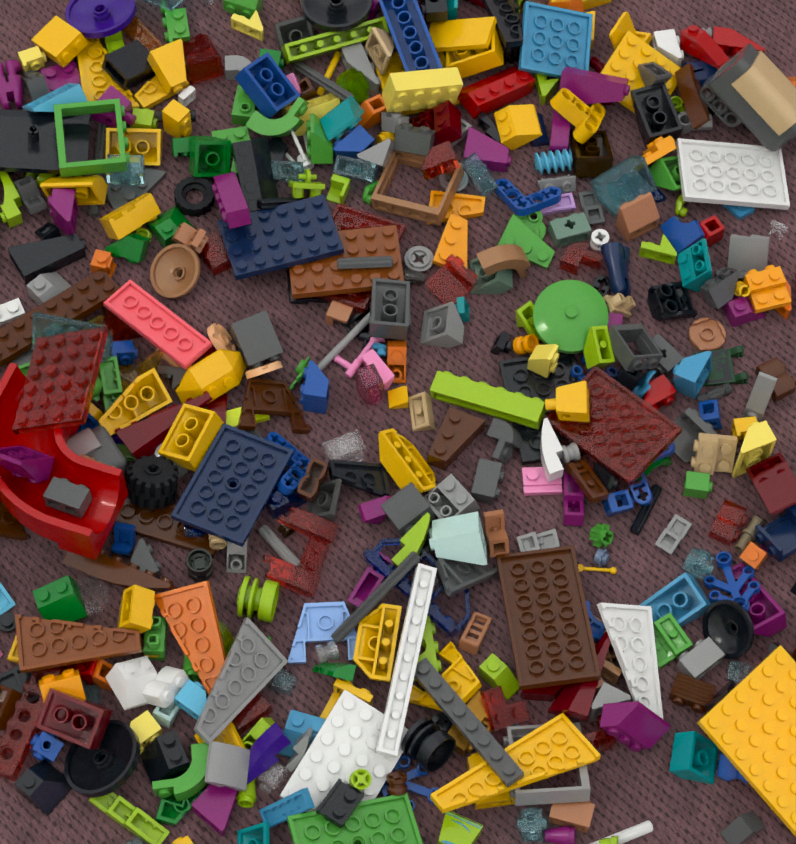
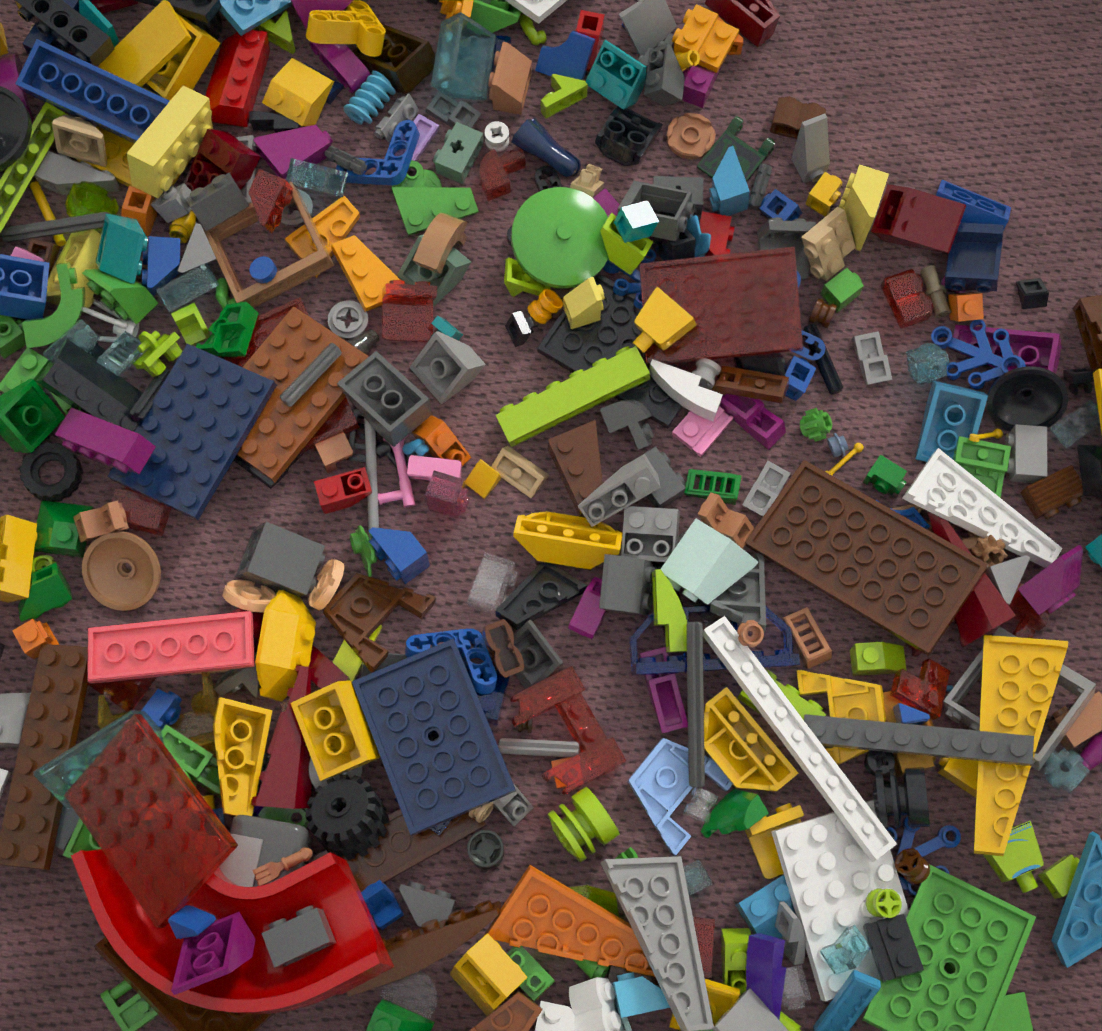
camera: 45 degrees left, 10 degrees up
(28, 440) = (190, 921): none -> blue slope
(276, 142) = (79, 334): none -> clear light blue bracket
(315, 779) = (846, 951): none -> clear light blue bracket
(321, 334) = (343, 490): none -> red slope
(353, 209) = (231, 331): none -> green slope
(400, 193) = (263, 269): none -> blue tile
(434, 588) = (755, 638): none -> nougat plate
(456, 463) = (621, 490): none -> light grey slope
(477, 709) = (909, 715): none -> blue slope
(504, 179) = (345, 160): none -> dark grey axle
(520, 526) = (724, 478): none -> green slope
(608, 592) = (886, 476): none -> green brick
(612, 339) = (636, 221): none -> teal panel
(618, 675) = (990, 550): none -> medium nougat gear
(672, 486) = (822, 313): none -> reddish brown wheel
(676, 619) = (997, 433): none -> yellow hinge

